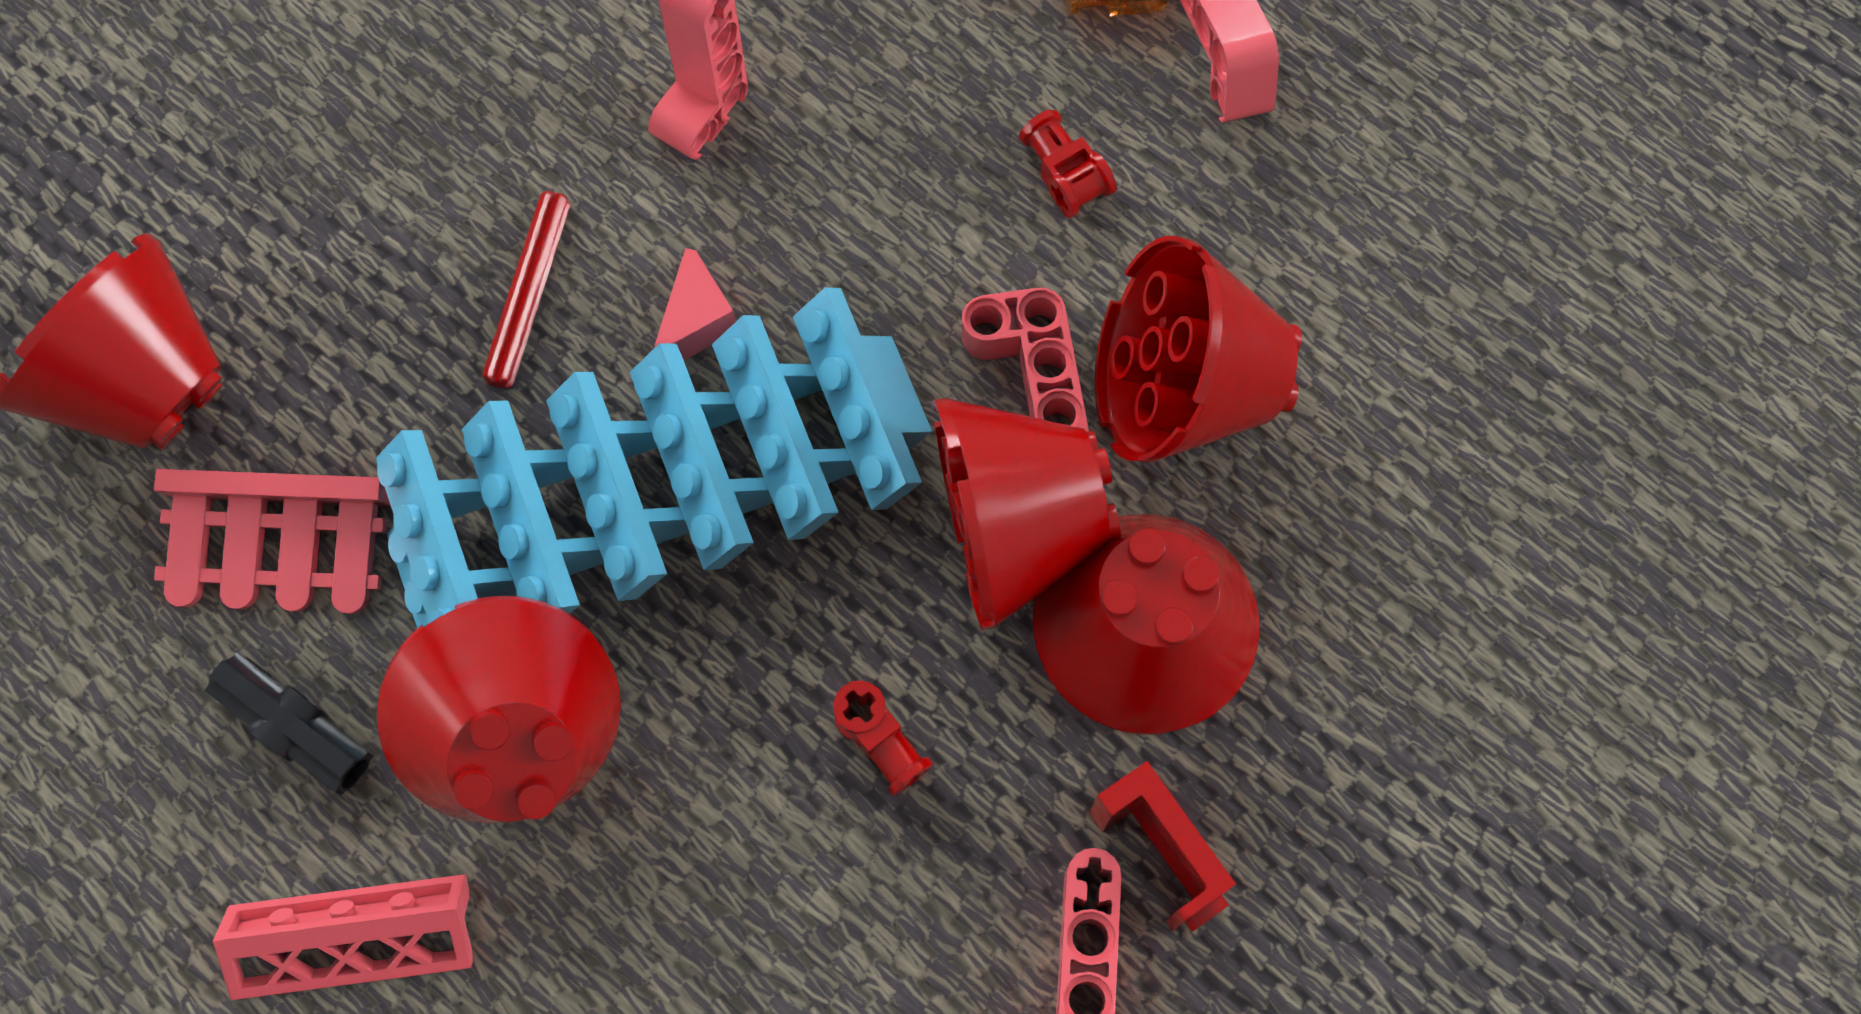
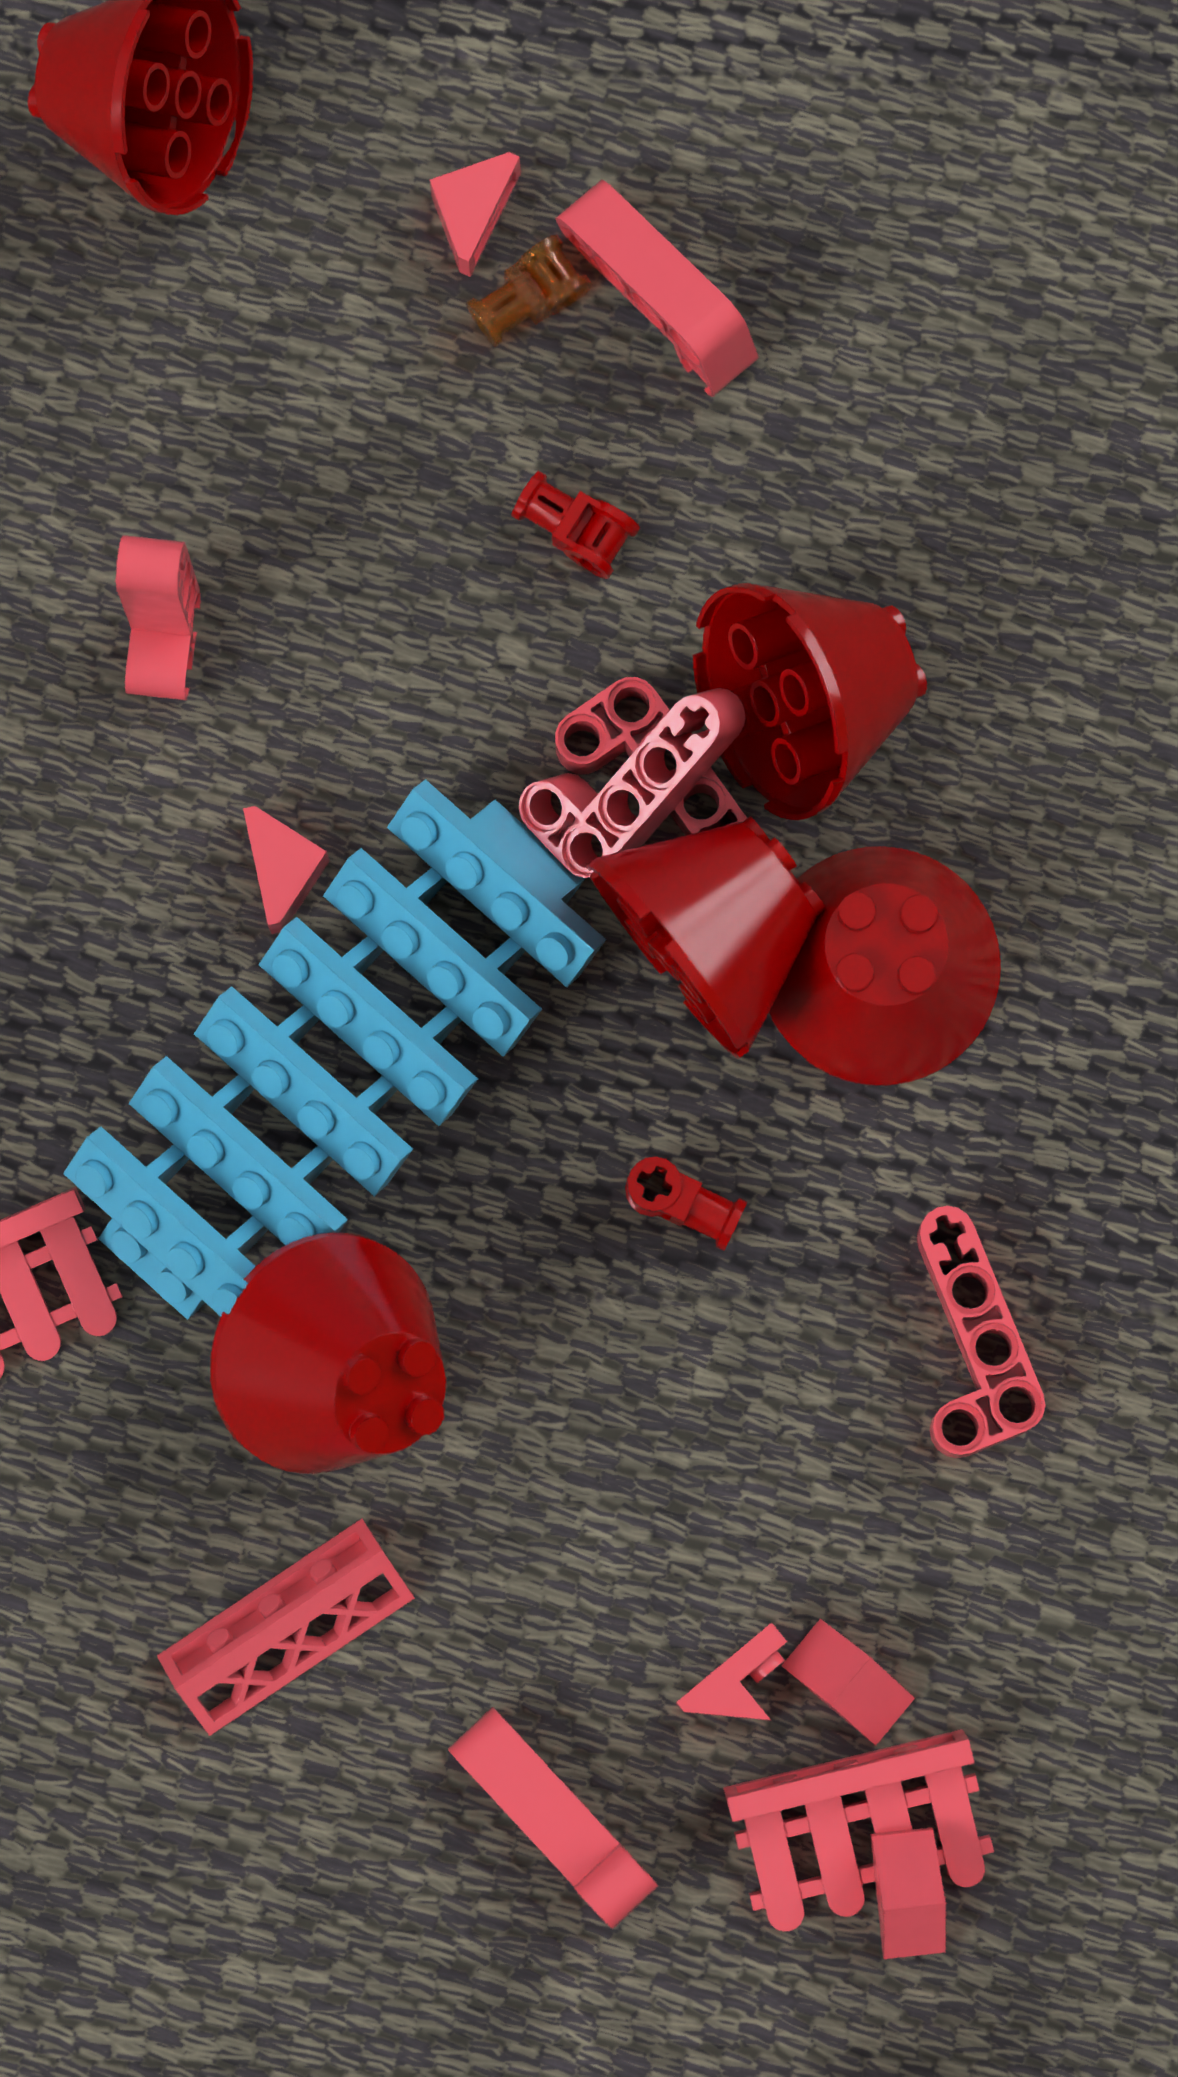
camera: 25 degrees left, 10 degrees up
(288, 723) = (115, 1464): black piece -> none
(526, 290) = (92, 922): axle -> none
(1081, 342) = (643, 775): none -> coral beam
(1174, 838) = (1007, 1166): red panel -> none

